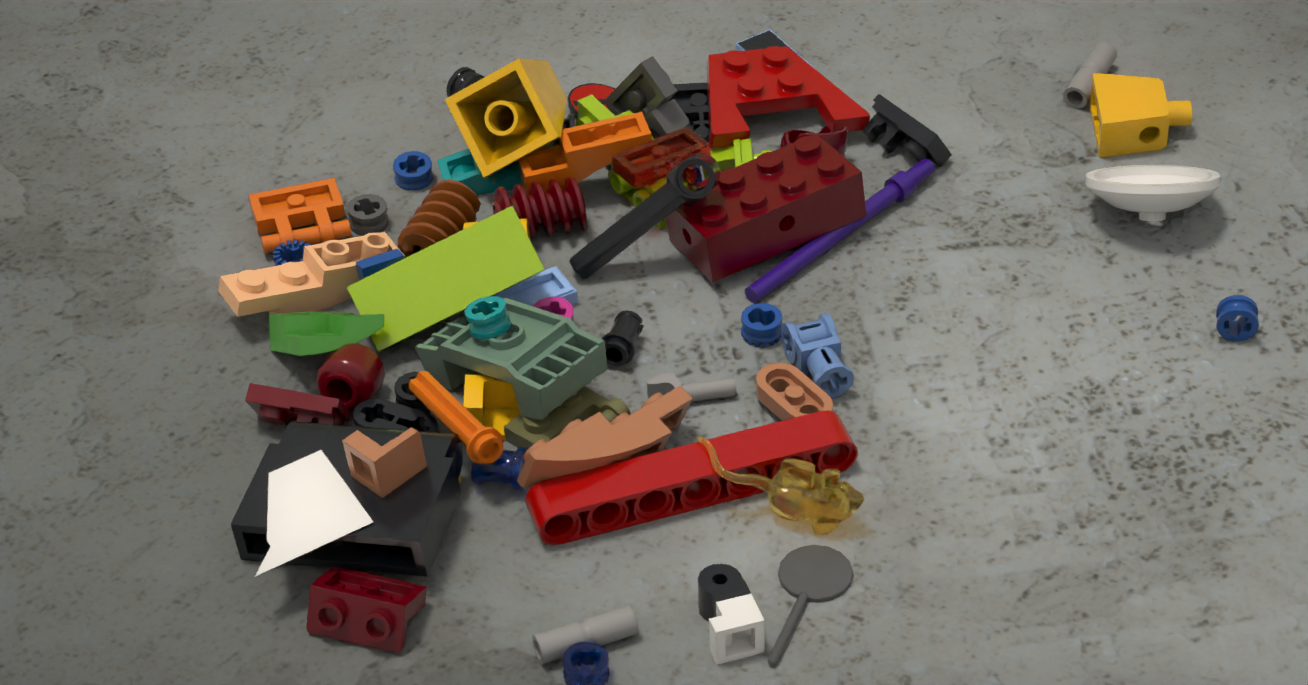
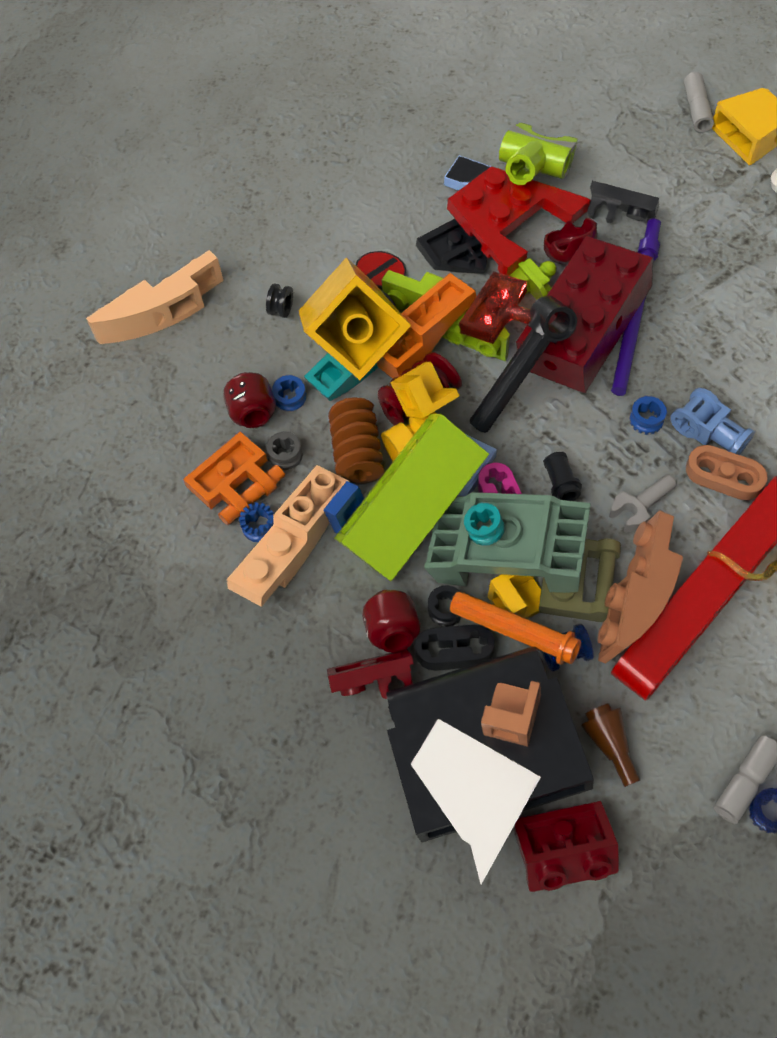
camera: 25 degrees left, 20 degrees up
(319, 331) = (338, 592): bright green slope -> none
(345, 50) = (152, 309): none -> light nougat slope
(364, 155) = (249, 399): none -> dark red head
(481, 541) = (609, 734): none -> reddish brown cone
(528, 194) = (422, 391): none -> yellow panel
(648, 92) = (436, 253): dark grey plate -> none
(845, 47) = (534, 154): none -> lime connector

